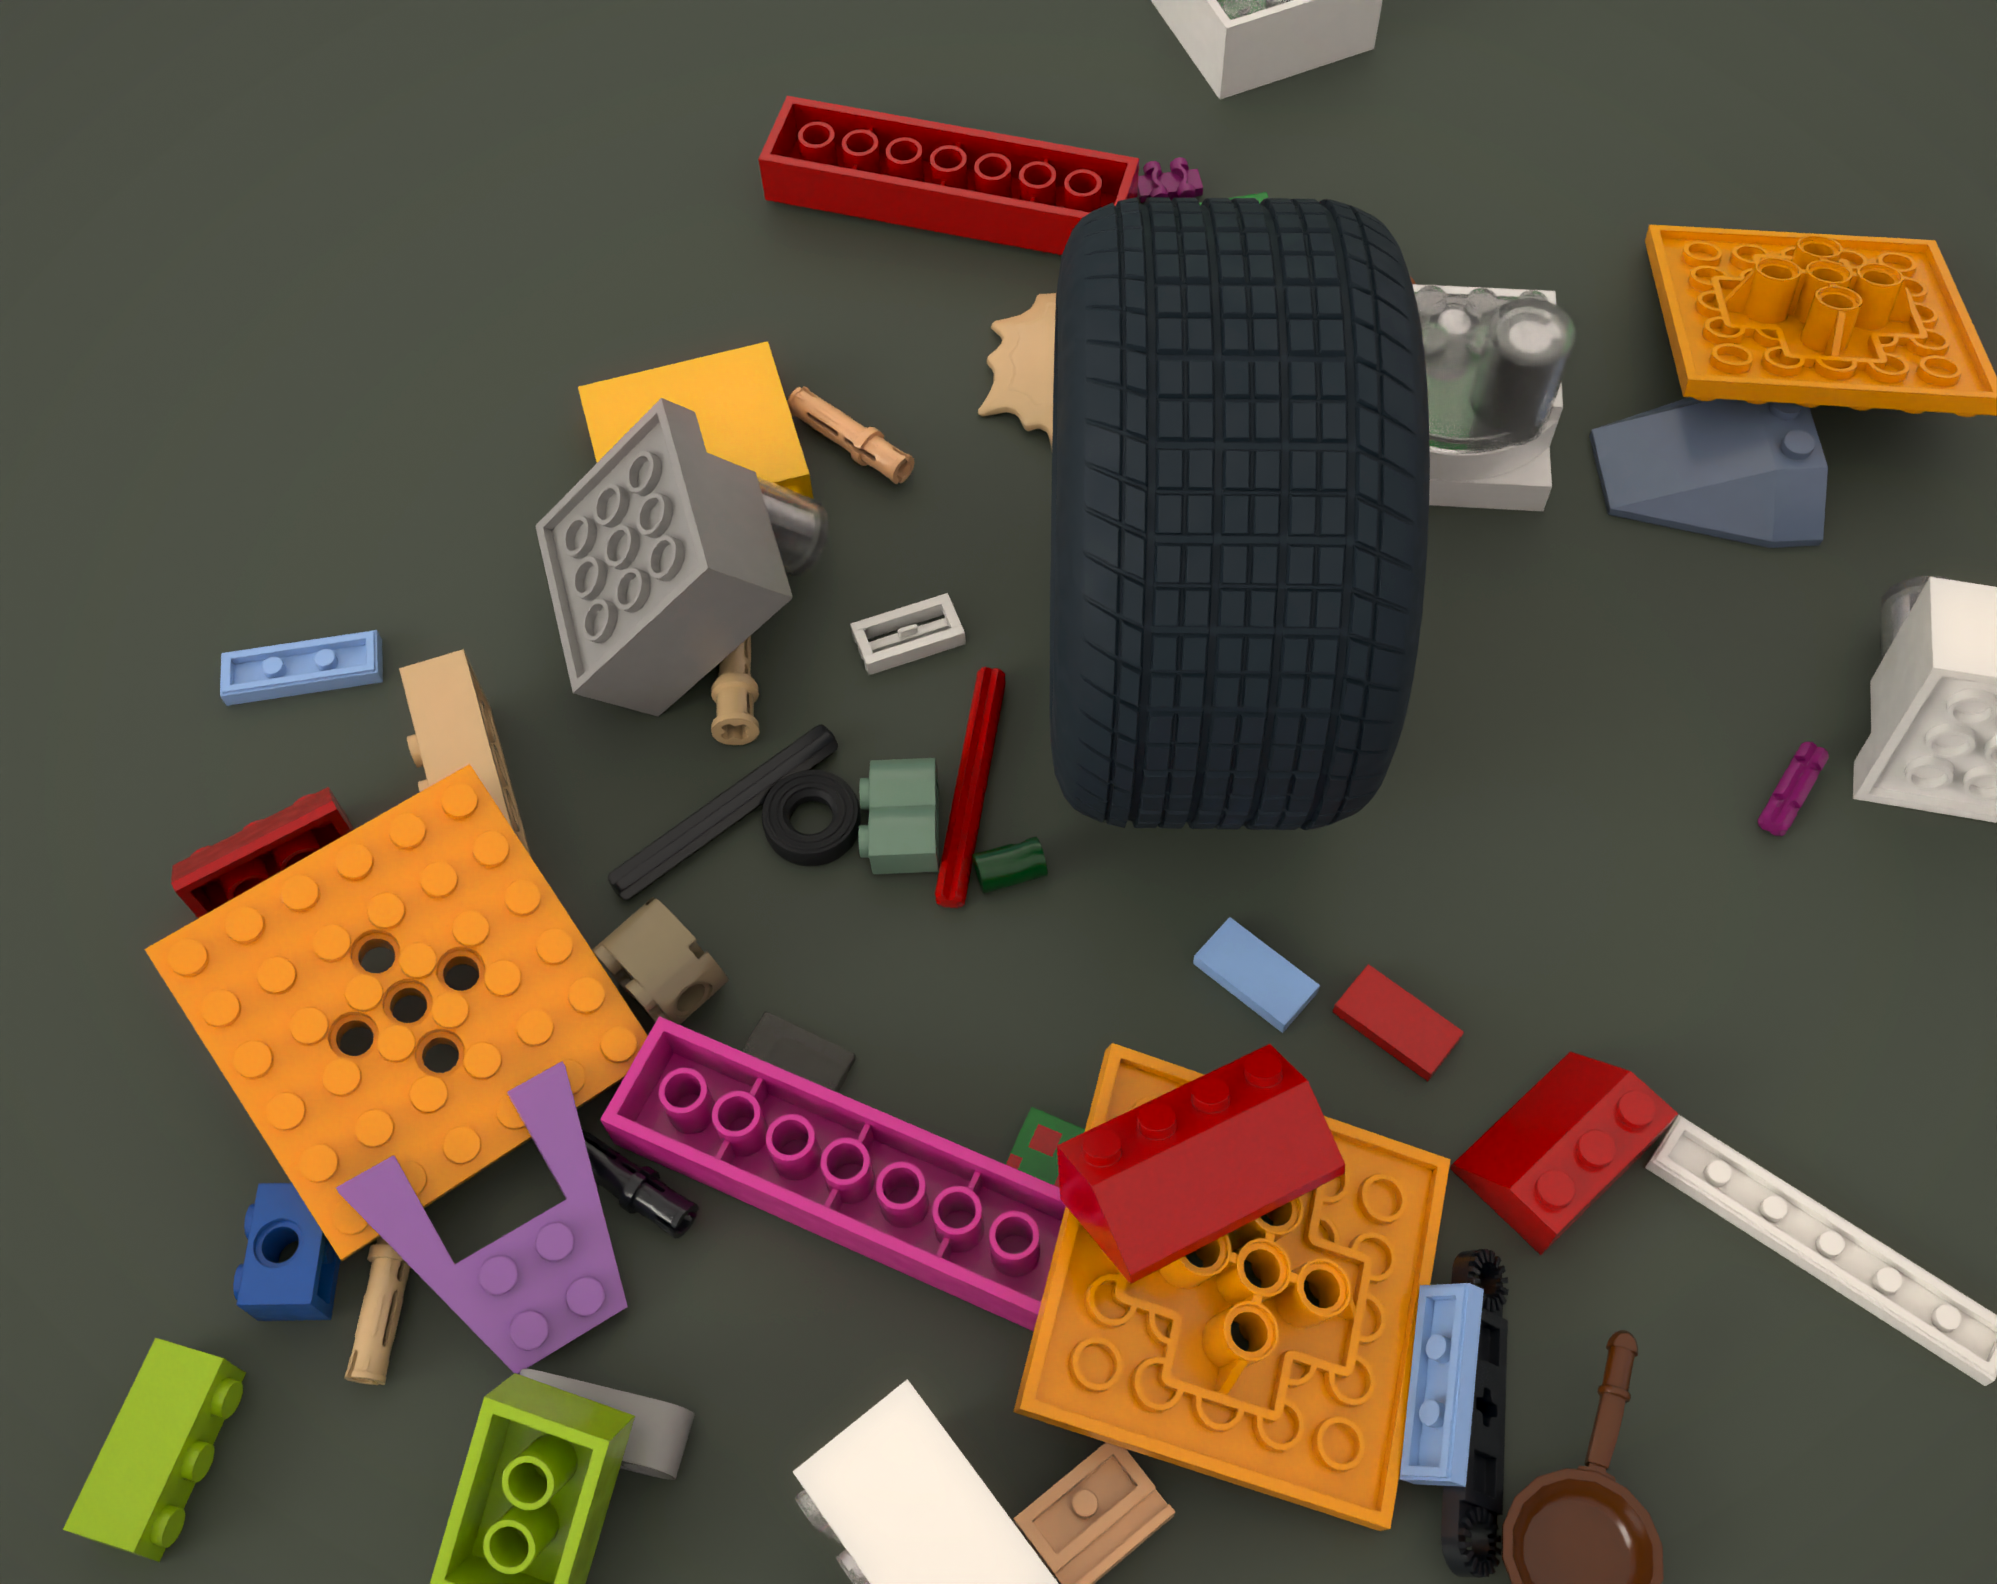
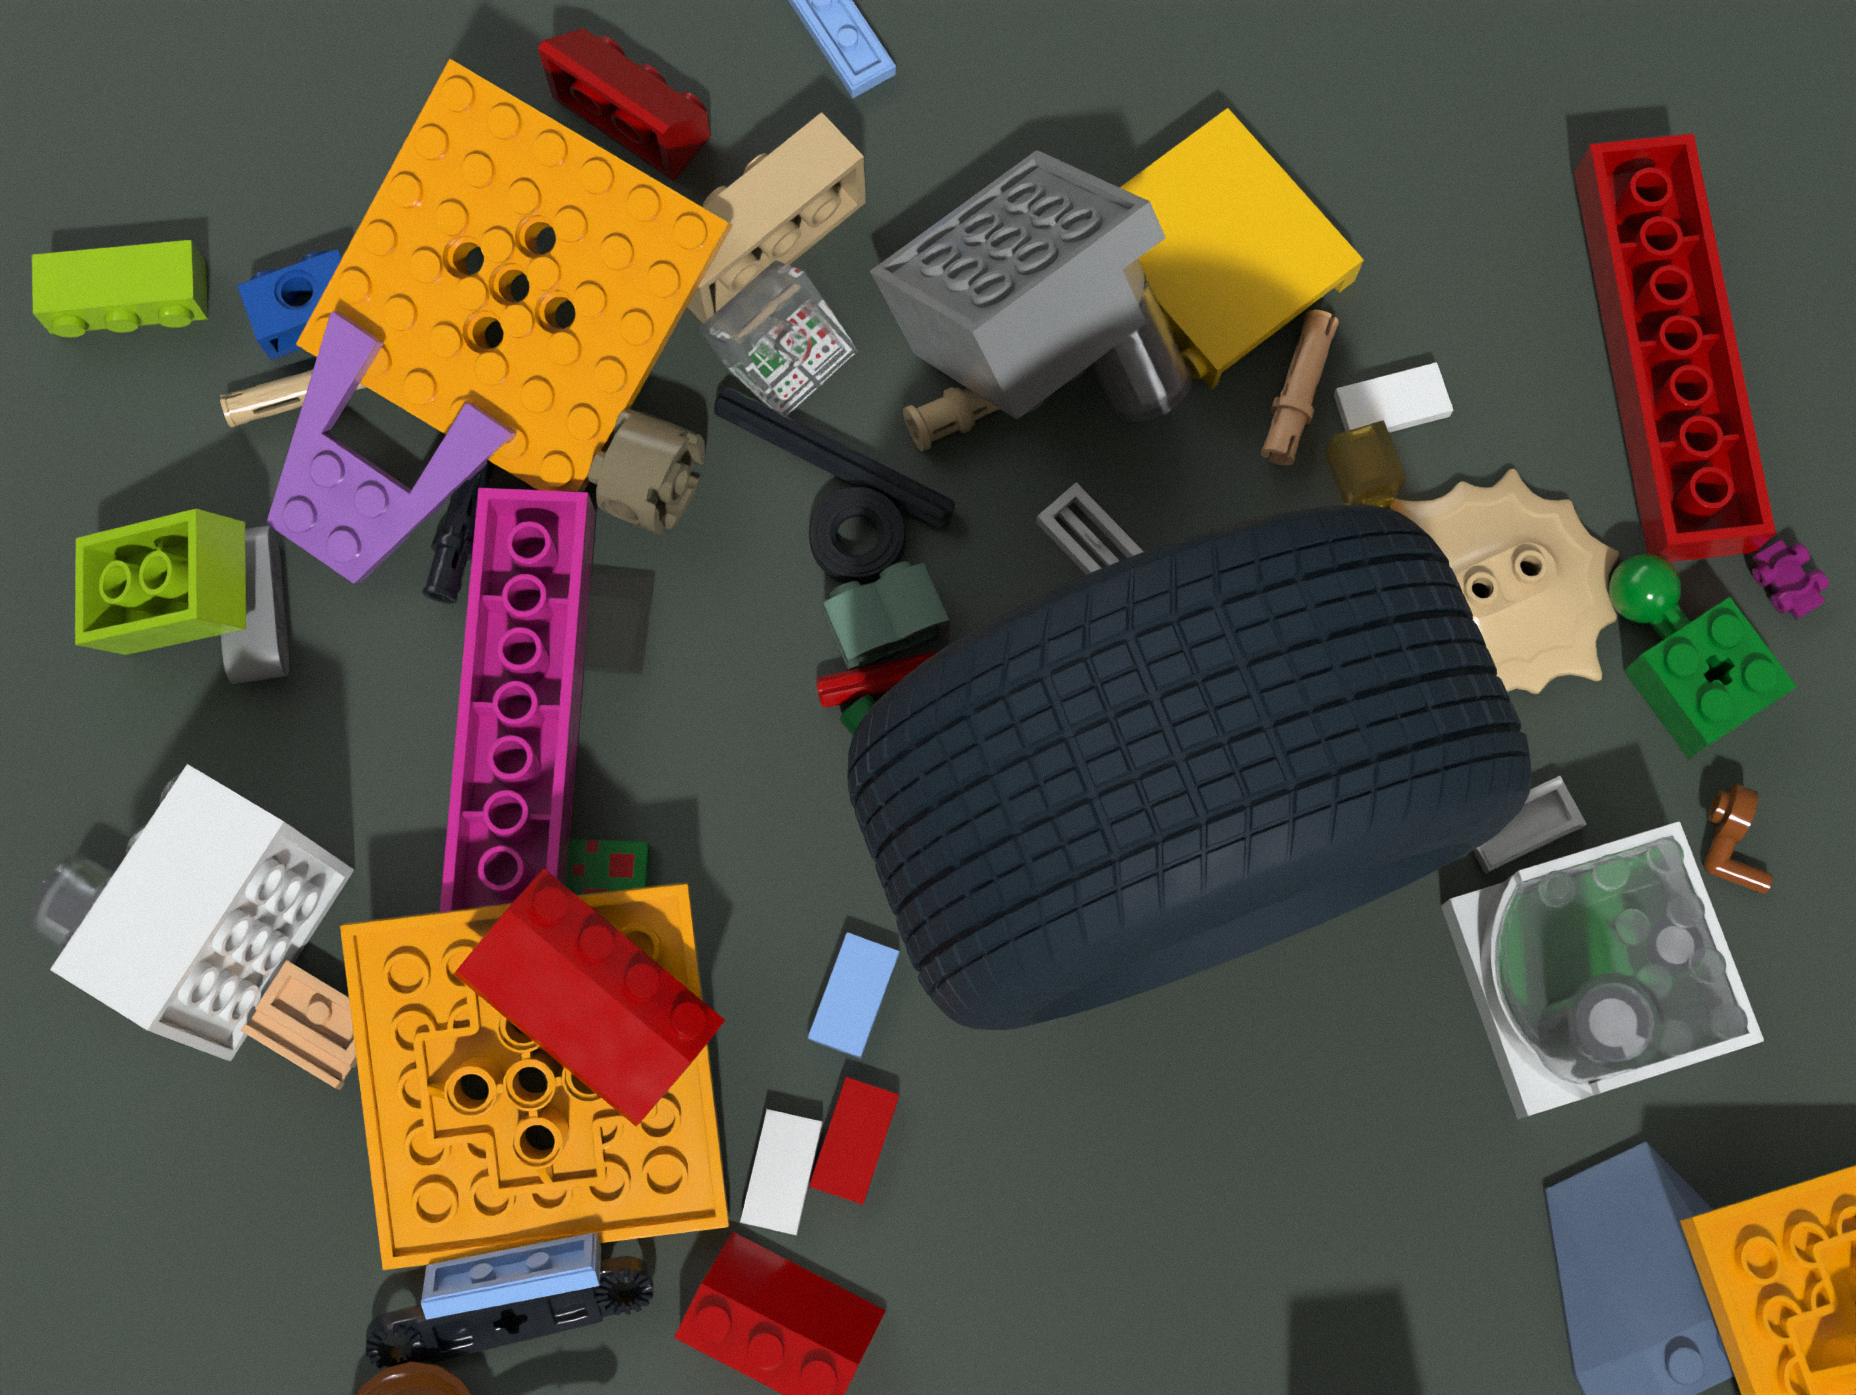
camera: 65 degrees right, 15 degrees up
(582, 811) = (779, 337): none -> clear slope
(895, 380) = (1397, 398): none -> white tile
(945, 411) = (1366, 465): none -> clear yellow brick
(1407, 1098) = (781, 1172): none -> white tile

